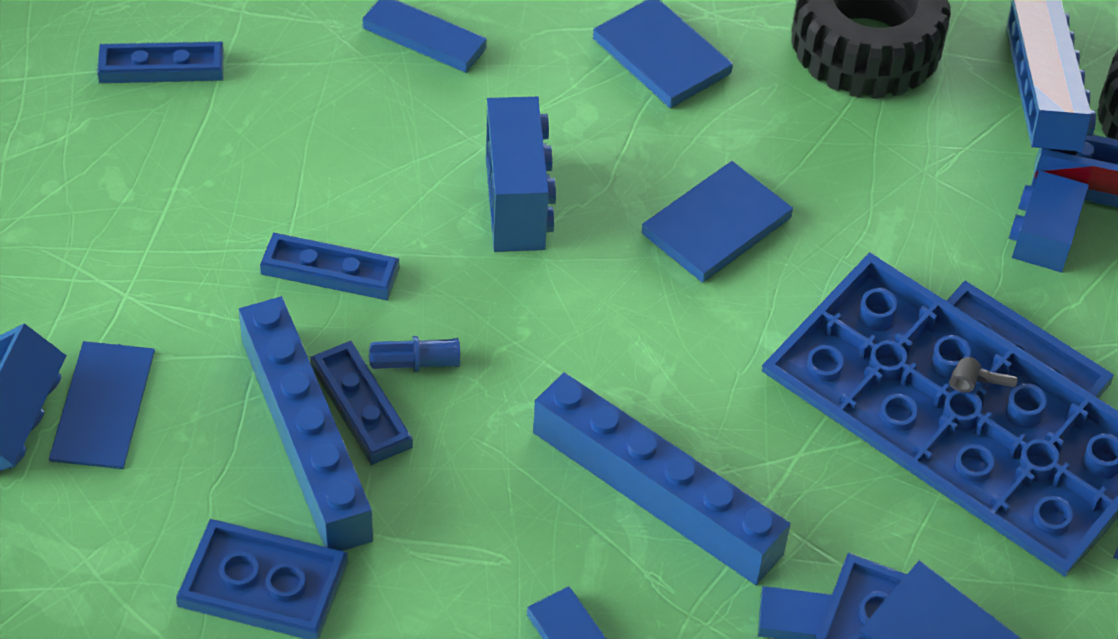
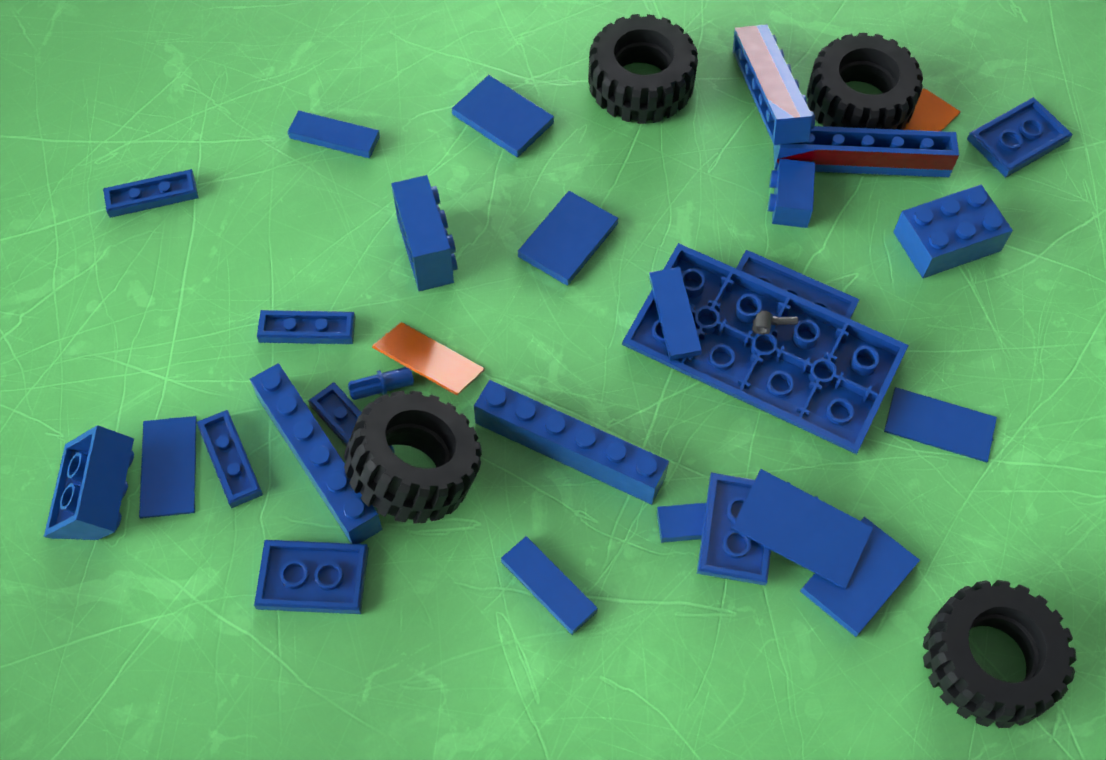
camera: 10 degrees left, 10 degrees up
(187, 410) = (229, 459): none -> blue tile
(413, 477) = (398, 486): none -> black tyre
(487, 335) = (428, 358): none -> orange piece
(844, 341) = (675, 313): none -> blue tile

